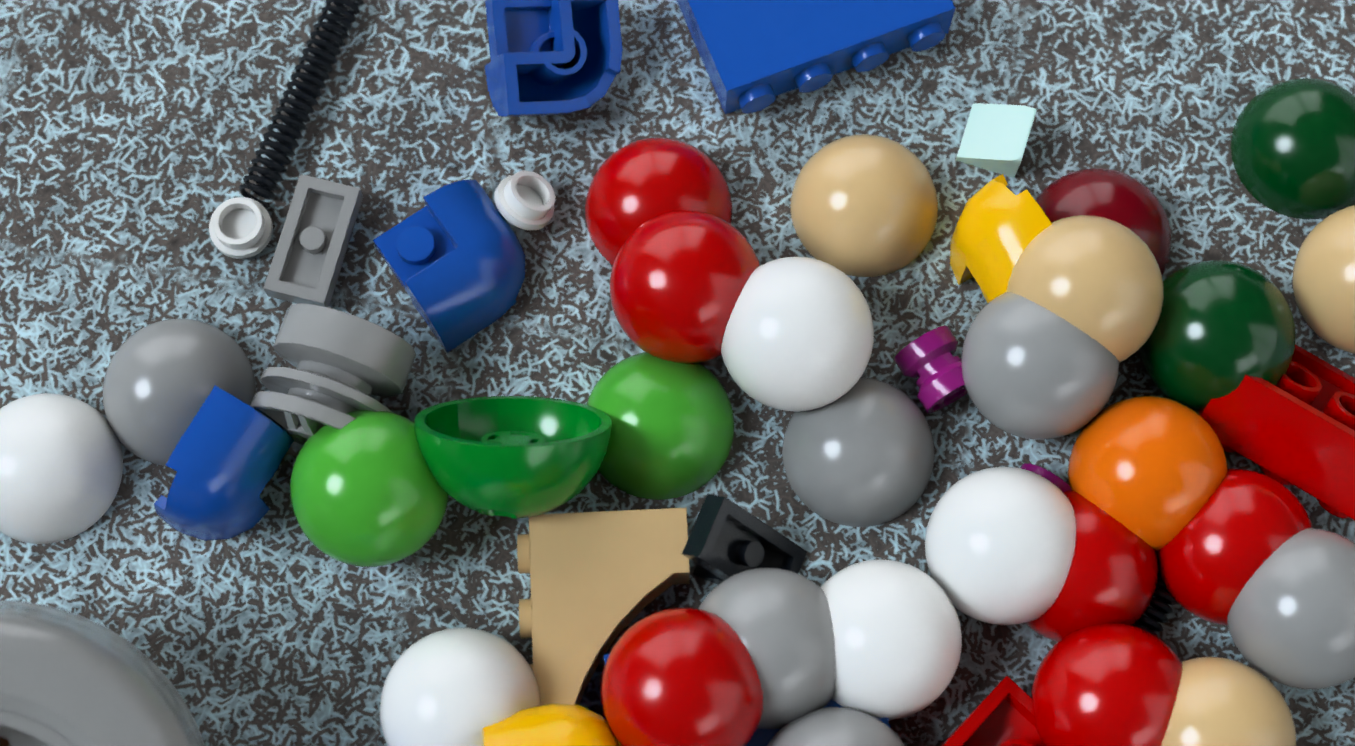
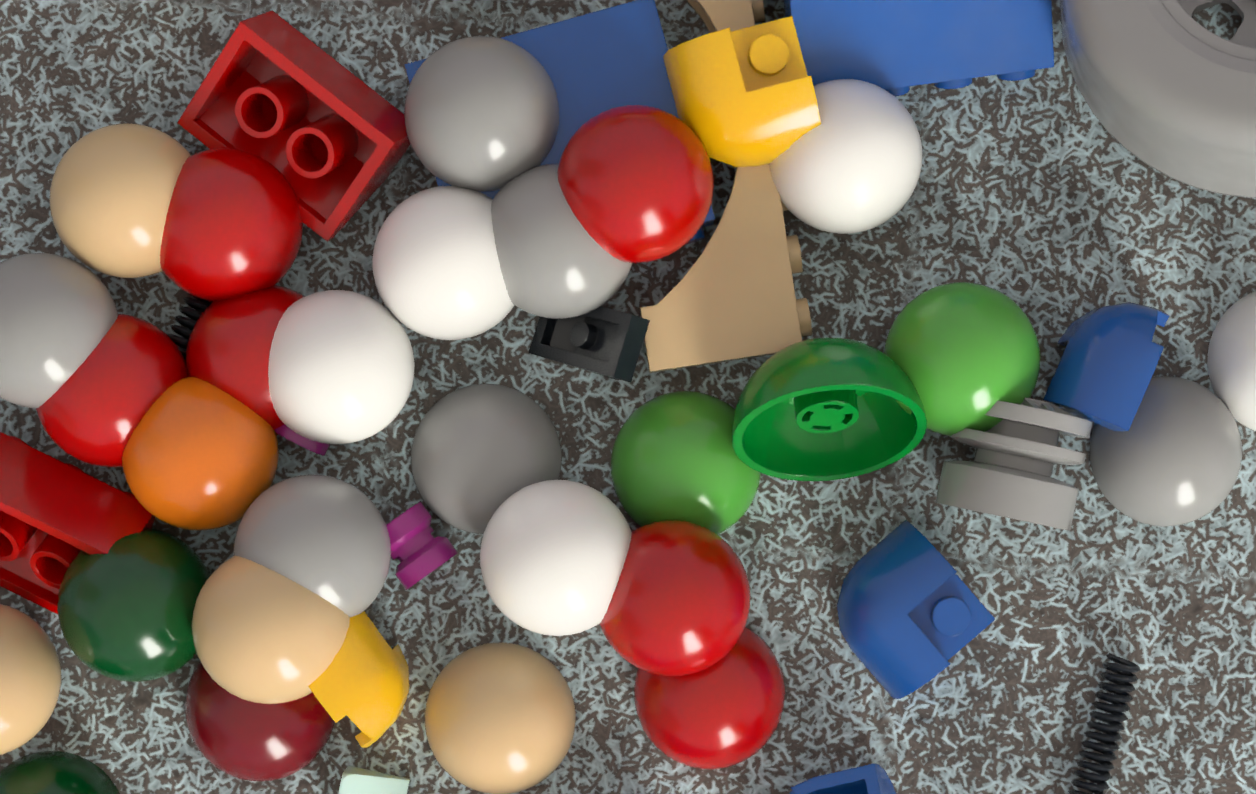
camera: 175 degrees right, 15 degrees up
(240, 227) = (1131, 627): white plate -> none
(313, 241) = (1055, 617): light grey plate -> none
(525, 200) = (846, 683): white plate -> none

